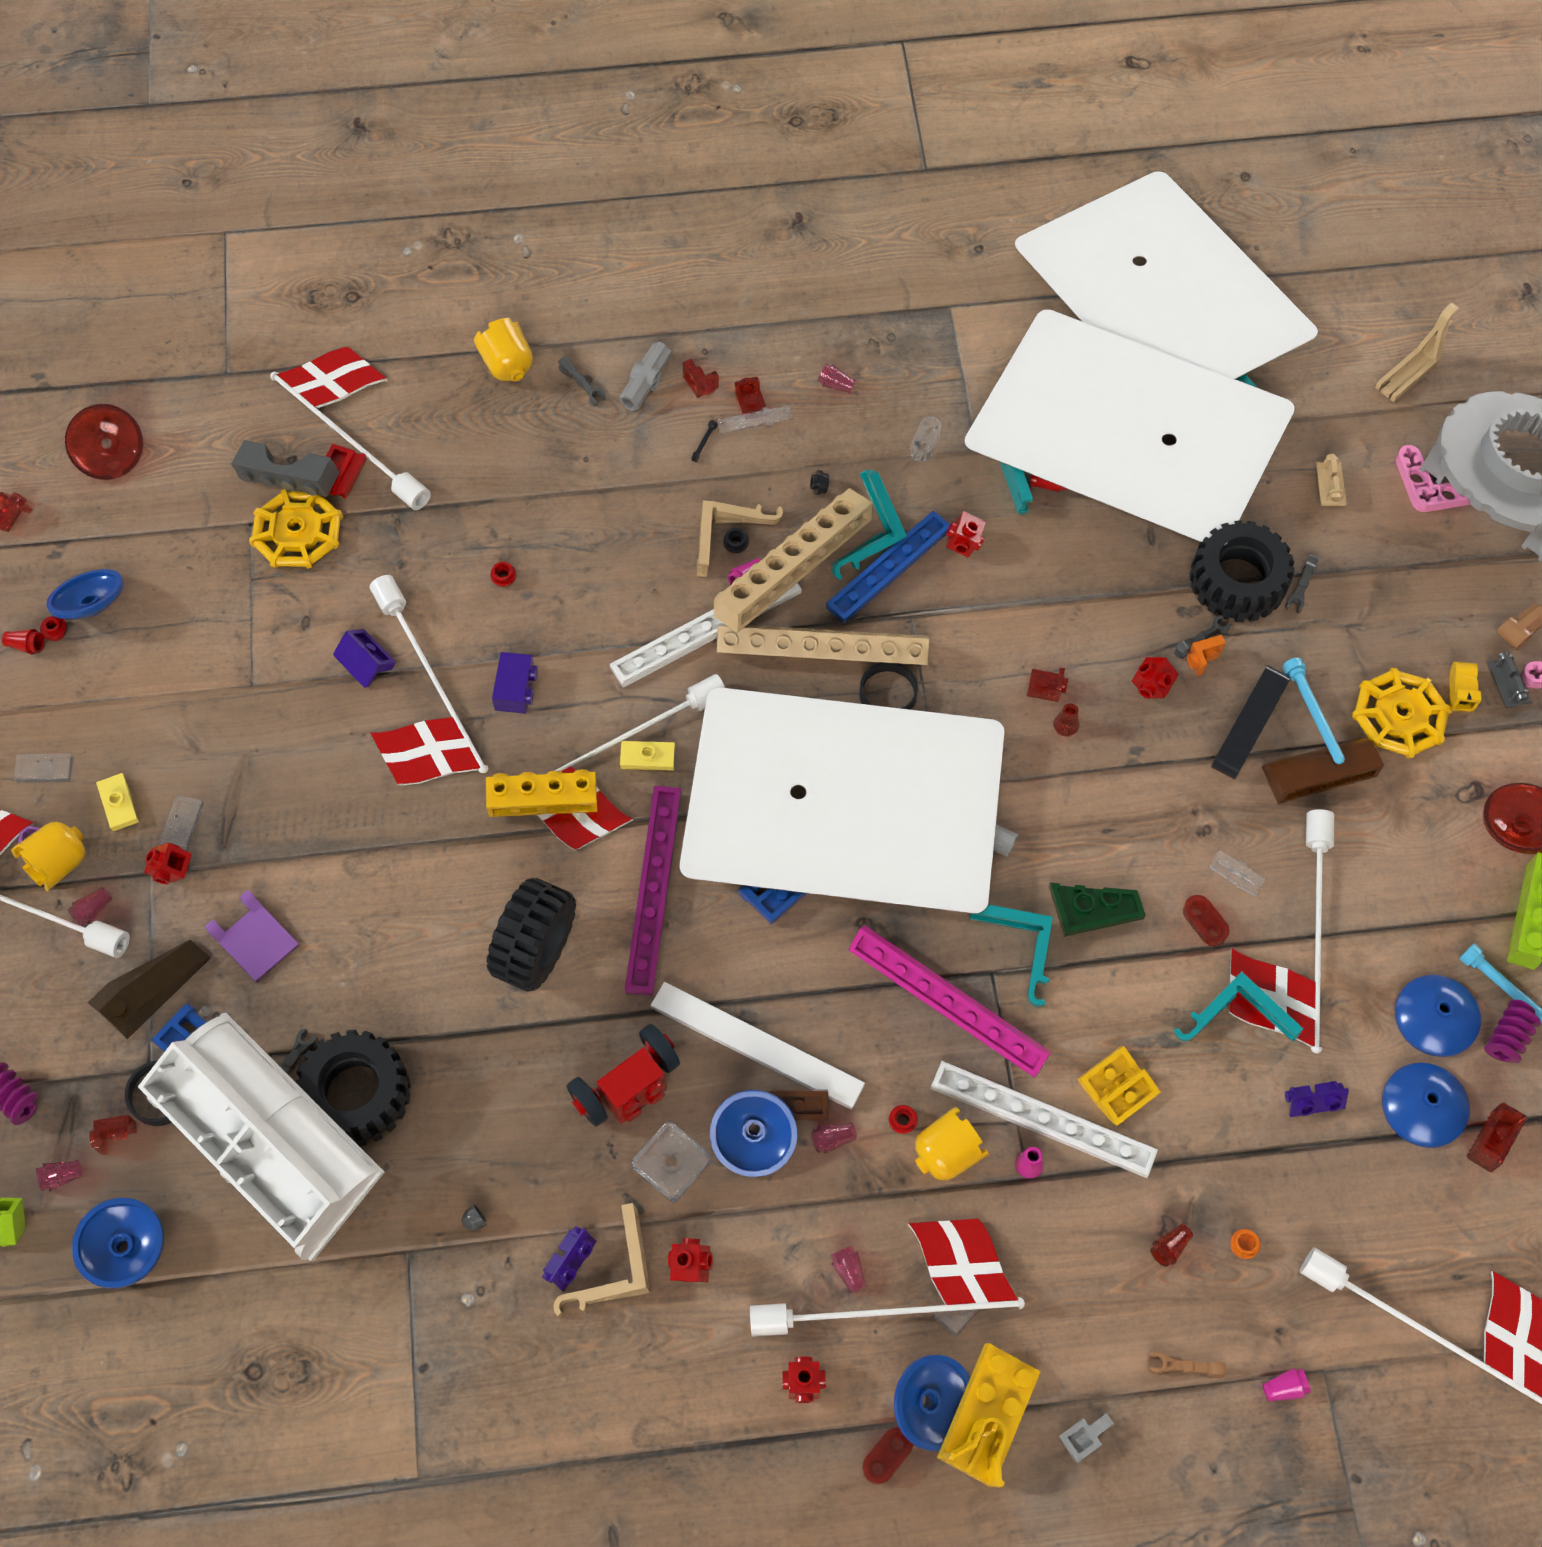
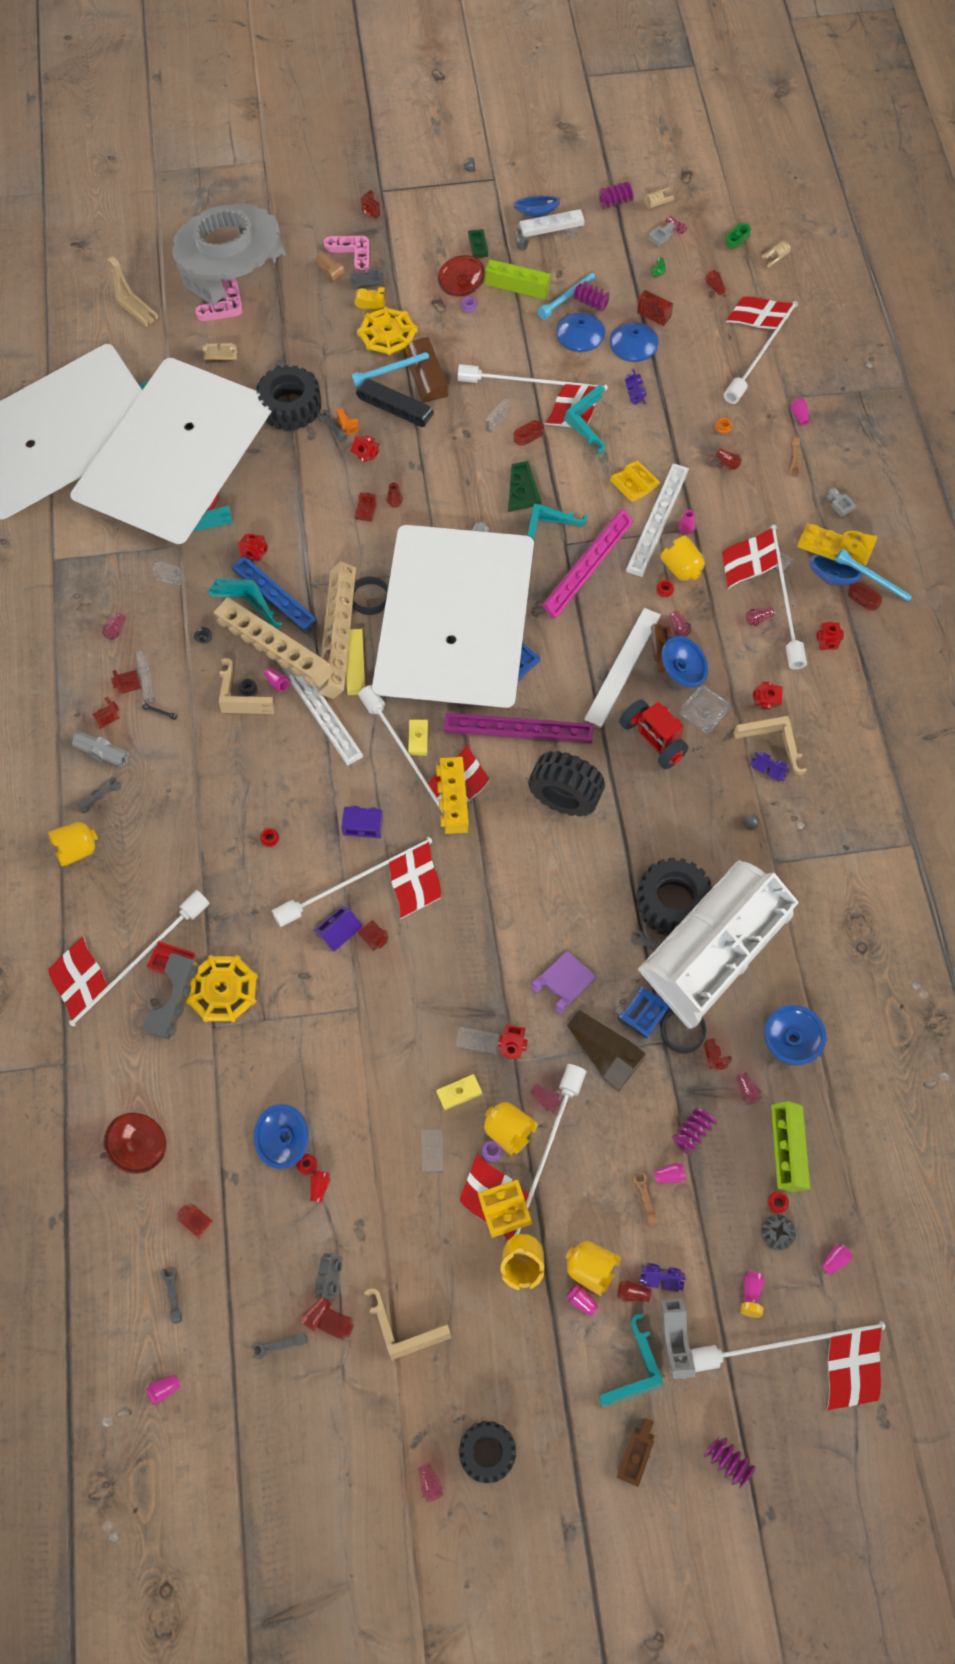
camera: 90 degrees left, 0 degrees up
(347, 700) = (373, 935): none -> clear red bracket
(776, 673) = (355, 663): none -> light yellow tile
(951, 1417) = (844, 557): none -> medium azure piece
(1473, 835) = (469, 304): none -> medium lavender plate

